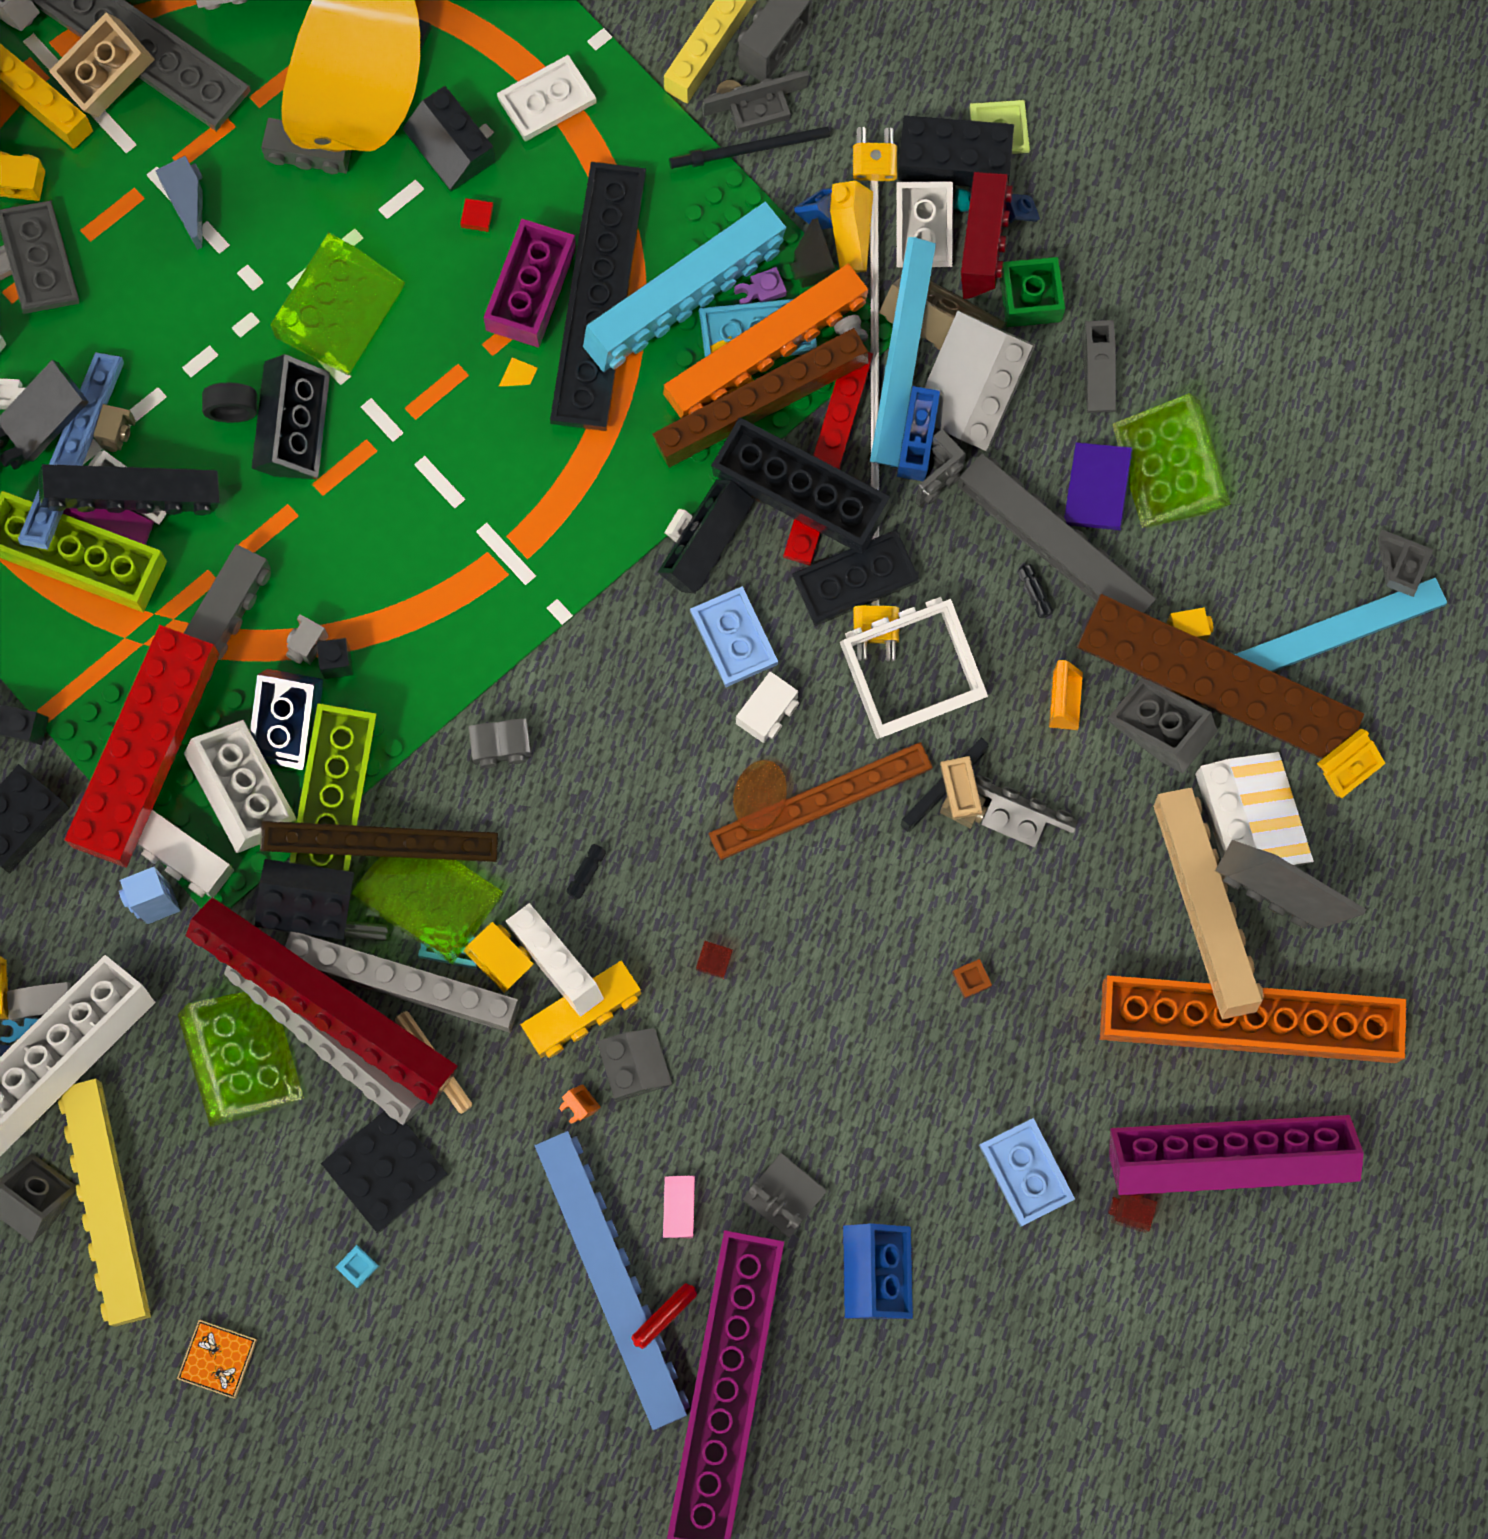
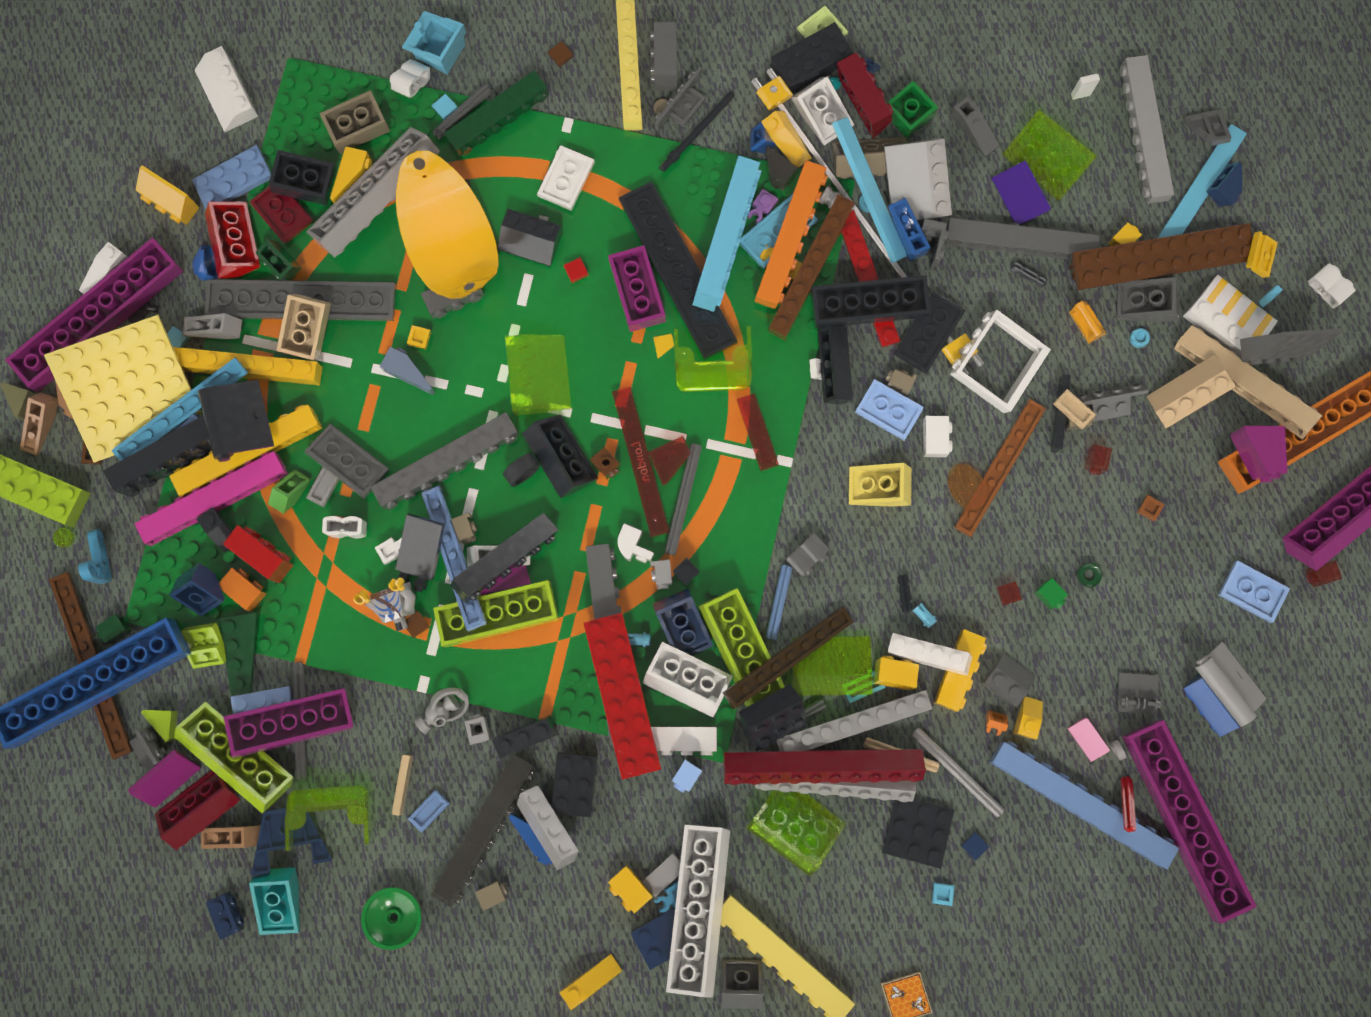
camera: 30 degrees left, 5 degrees up
(150, 334) = (445, 461): none -> flat silver brick
(224, 703) = (639, 639): none -> medium azure pin
(230, 169) = (419, 337): none -> yellow plate
(291, 578) = (627, 543): none -> white brick
(337, 465) = (606, 463): none -> reddish brown brick
(382, 493) = (640, 462): none -> clear red tile
(399, 571) = (683, 499): none -> dark grey axle
(418, 511) = (669, 458): none -> clear red wing
(423, 775) = (778, 602): none -> medium blue axle
(439, 1236) = (974, 846): none -> dark blue tile
(487, 1133) = (958, 772): none -> light grey axle
(547, 449) = (713, 375): none -> clear neon green windscreen
(548, 552) = (757, 432): none -> clear red plate
(589, 915) = (925, 616): none -> medium azure pin
(623, 1127) = (1029, 718): none -> yellow slope
(654, 720) = (880, 485): none -> light yellow slope
(705, 1245) = (1118, 750): none -> light grey tile
(766, 996) = (1051, 594): none -> green brick
(773, 611) = (900, 381): none -> dark tan brick
(839, 1019) = (1097, 575): none -> dark green piece
(906, 1259) = (1230, 684): none -> light grey door
(949, 873) = (1098, 459): none -> clear red brick
(1118, 762) = (1139, 337): none -> medium azure tile
(1125, 868) = (1191, 391): none -> tan slope
(1152, 992) = (1262, 451): none -> magenta slope
(1274, 406) = (1085, 86): none -> white tile
(1318, 513) = (1146, 129): none -> light grey brick
(1324, 822) = (1270, 296): none -> medium azure tile
(1369, 649) = (1227, 185): none -> dark blue slope
(1416, 863) = (1331, 285): none -> white brick

